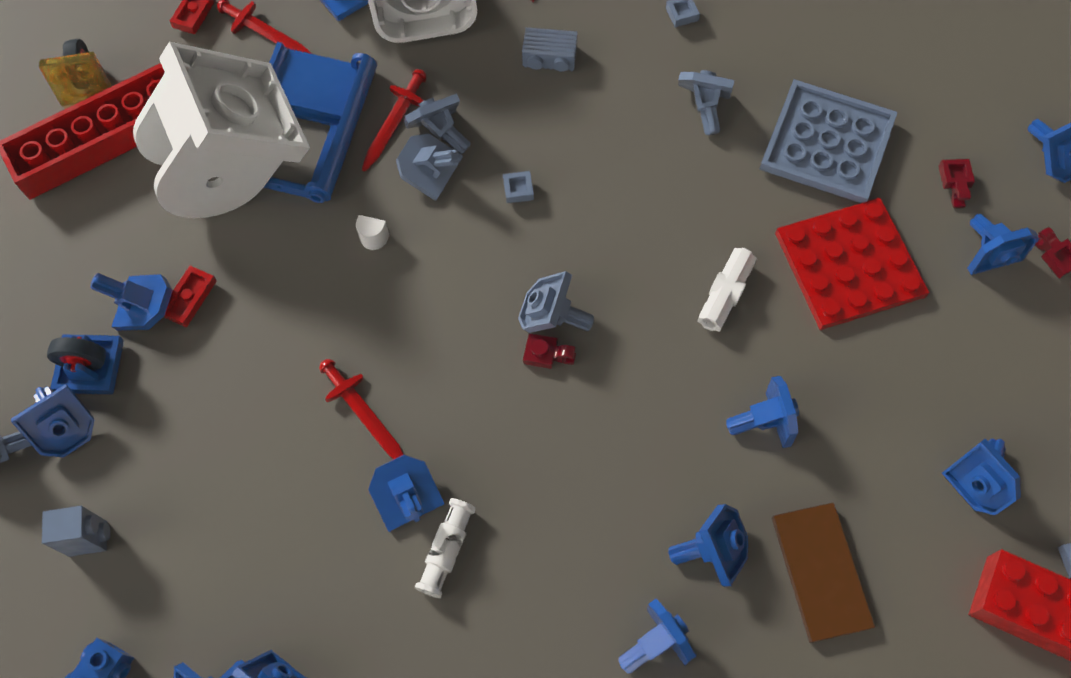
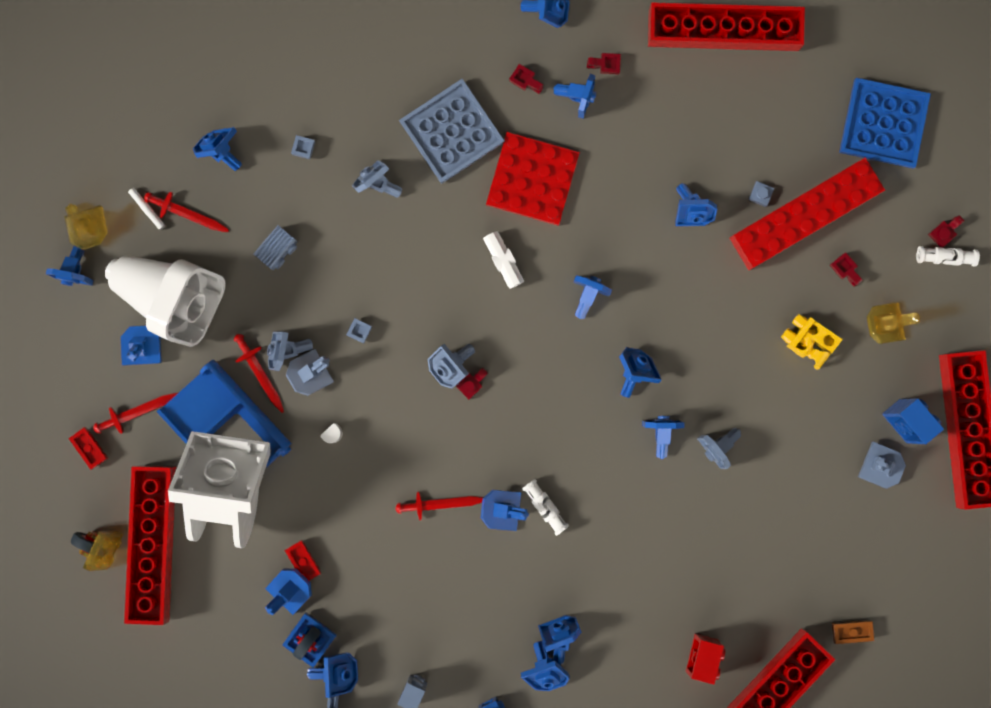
camera: 55 degrees left, 20 degrees up
(822, 573) = (682, 326): reddish brown tile -> none

